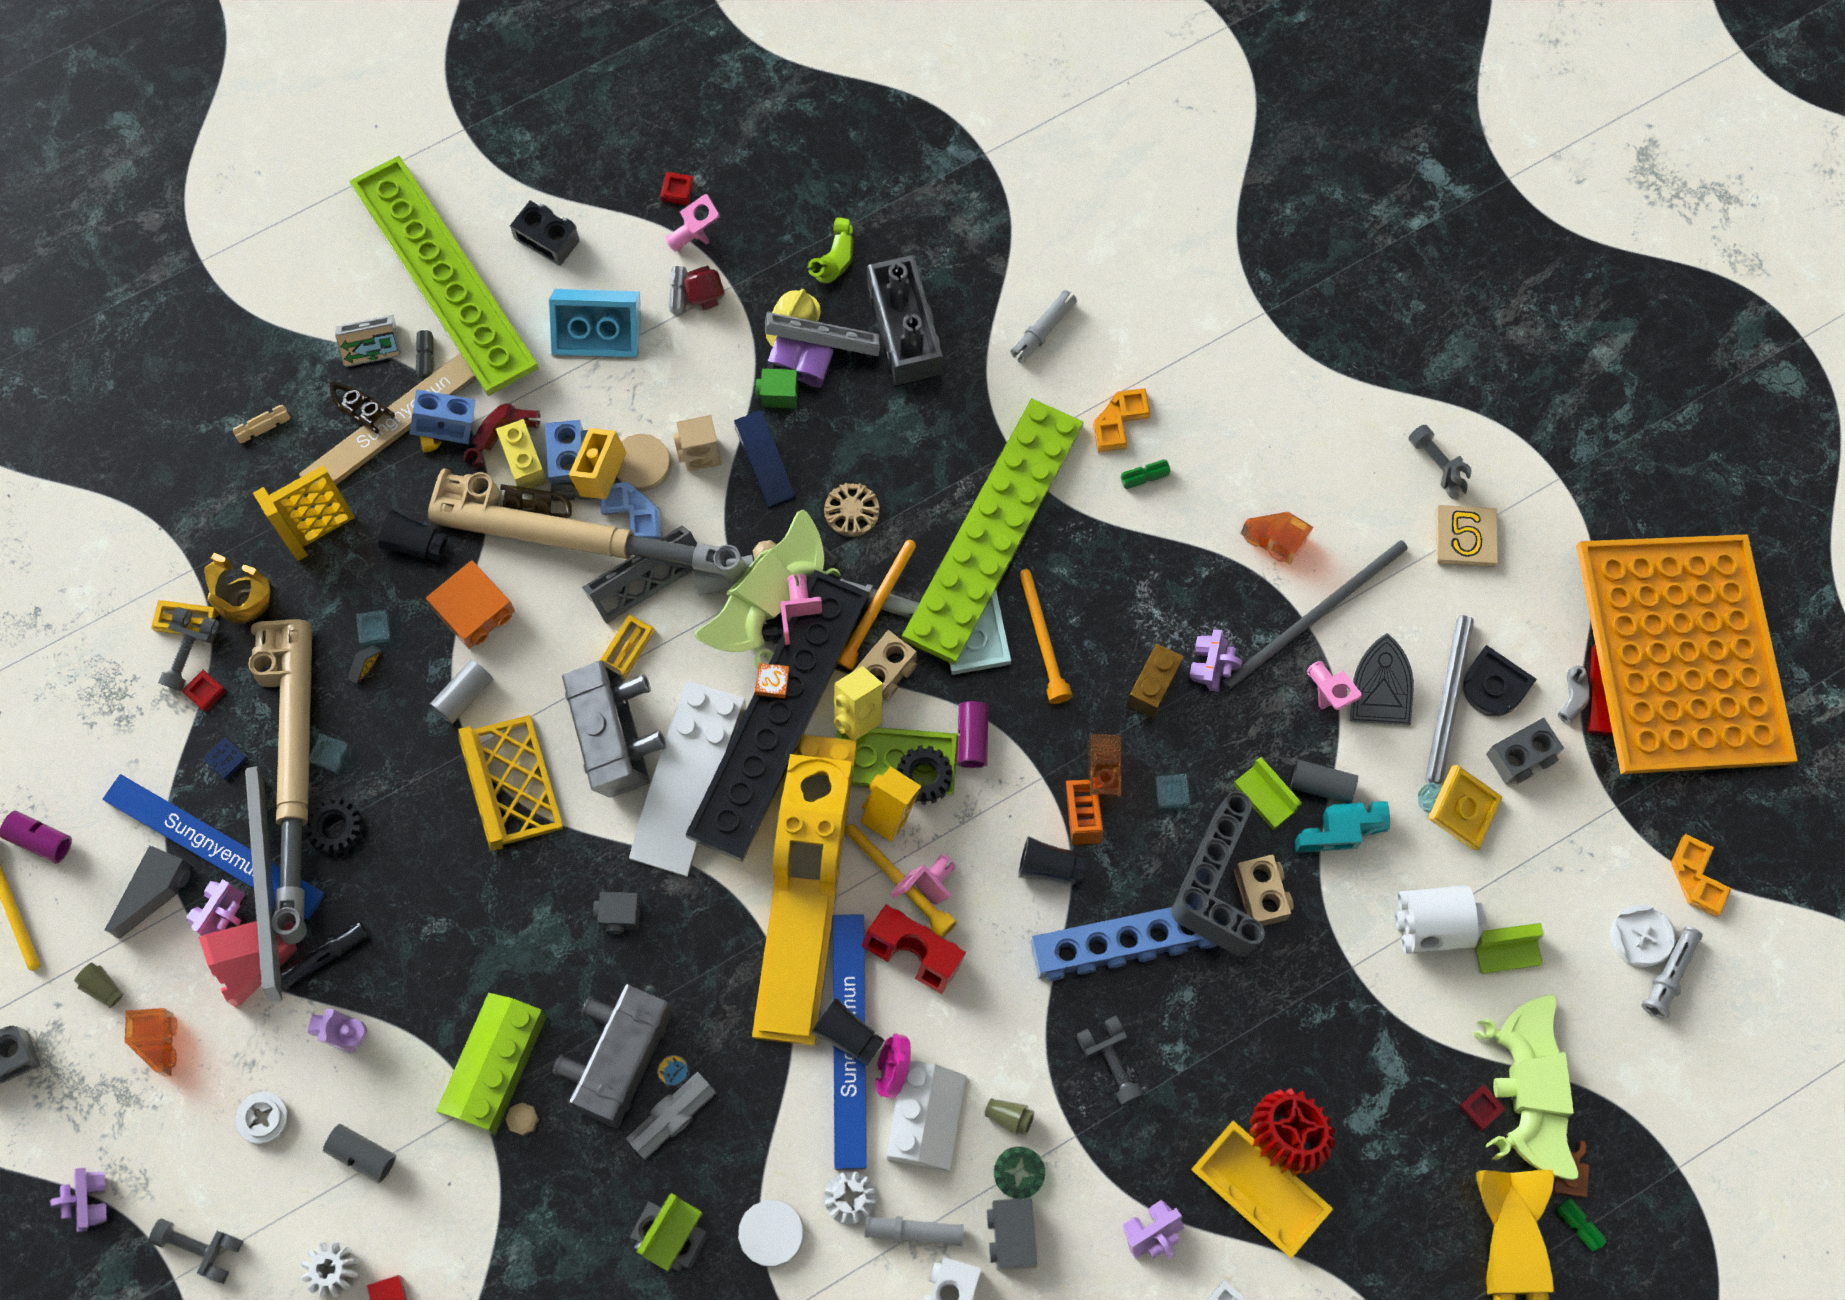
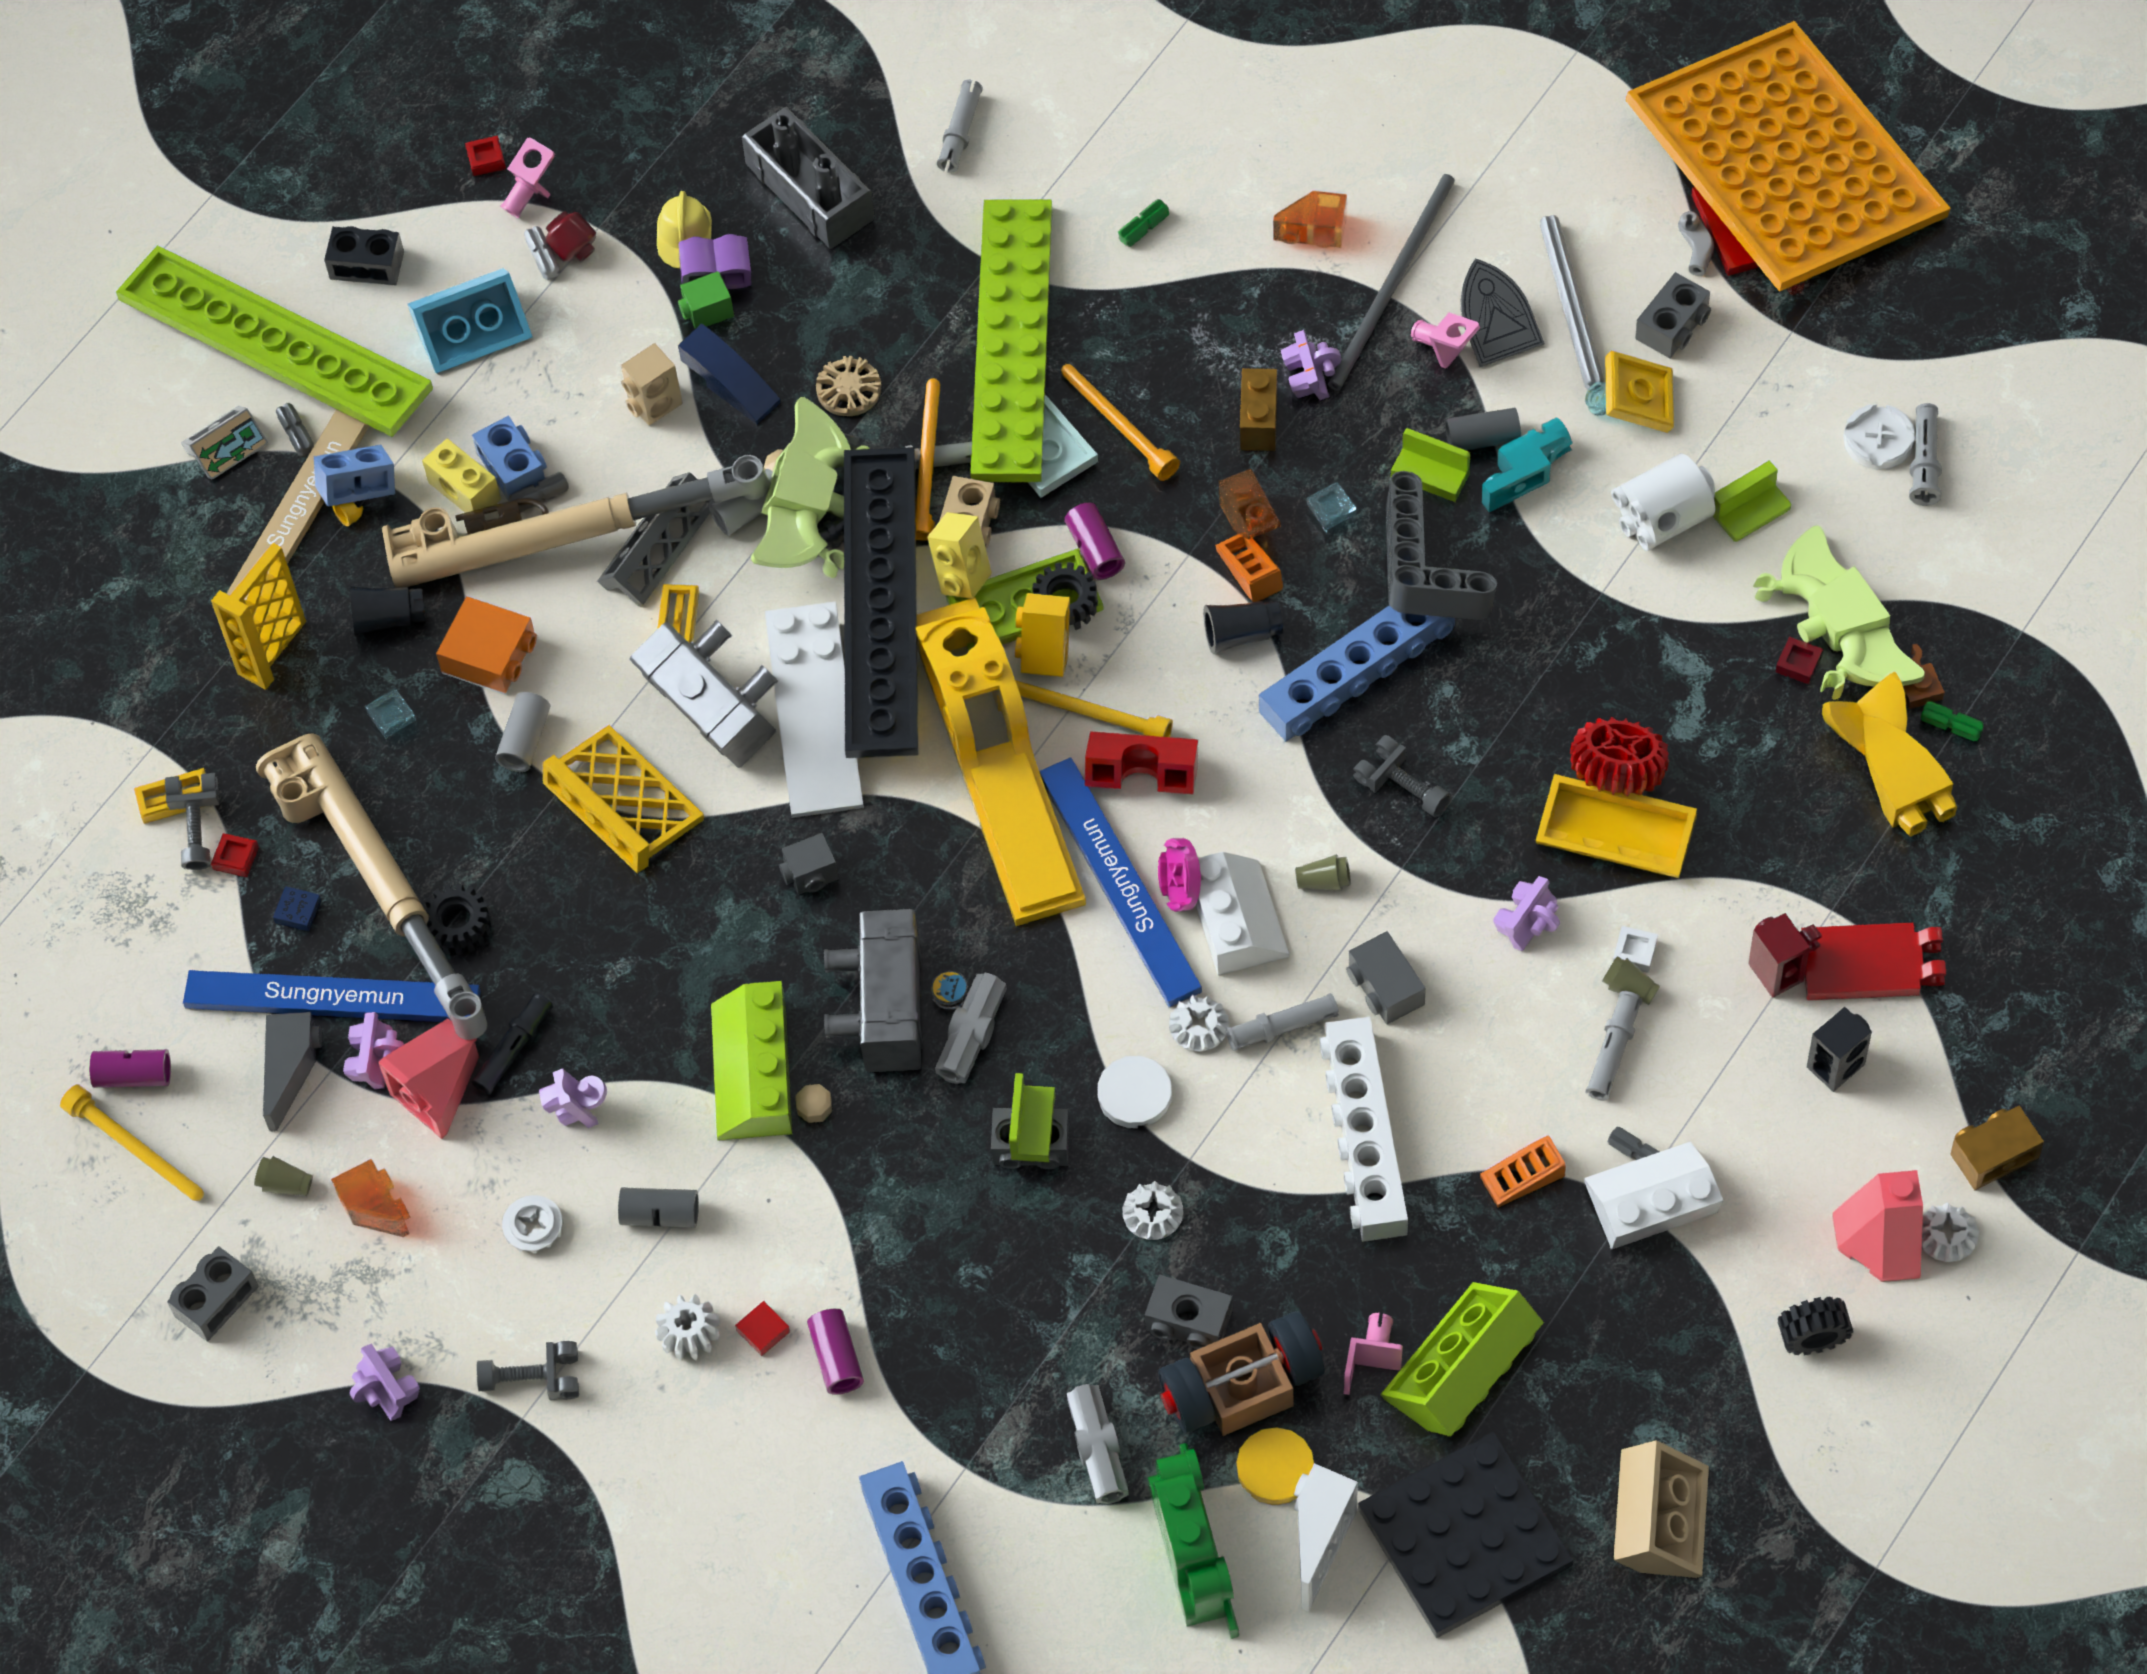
camera: 20 degrees left, 10 degrees down
(241, 599) = (232, 742): pearl gold piece -> none
(261, 423) = (150, 572): tan axle -> none
(263, 884) = (416, 991): light grey tile -> none
(328, 753) = (410, 851): clear light blue plate -> none
(354, 400) = (244, 503): dark brown piece -> none
(363, 663) = (398, 753): dark grey tile -> none
(487, 435) = (412, 469): dark red arm -> none
(597, 463) = (553, 446): yellow brick -> none
(643, 514) = (599, 474): light blue tile -> none
(645, 462) = (594, 435): tan tile -> none
(772, 680) = (857, 569): tile -> none
(799, 603) = (846, 486): bright pink bracket -> none
(822, 334) = (726, 226): light grey tile -> none
(839, 259) = (700, 157): lime arm -> none
(848, 1033) = (1115, 865): black plant -> none
(928, 880) = (1123, 694): bright pink bracket -> none
(1032, 1164) = (1370, 910): clear green gear -> none
(1123, 407) = (1080, 191): light orange tile -> none
(1255, 892) = (1480, 552): tan brick -> none
(1422, 438) = (1465, 90): dark grey bar -> none
(1466, 535) = (1509, 142): tan tile -> none
(1495, 684) = (1611, 268): black tile -> none
(1699, 890) = (1911, 369): light orange tile -> none

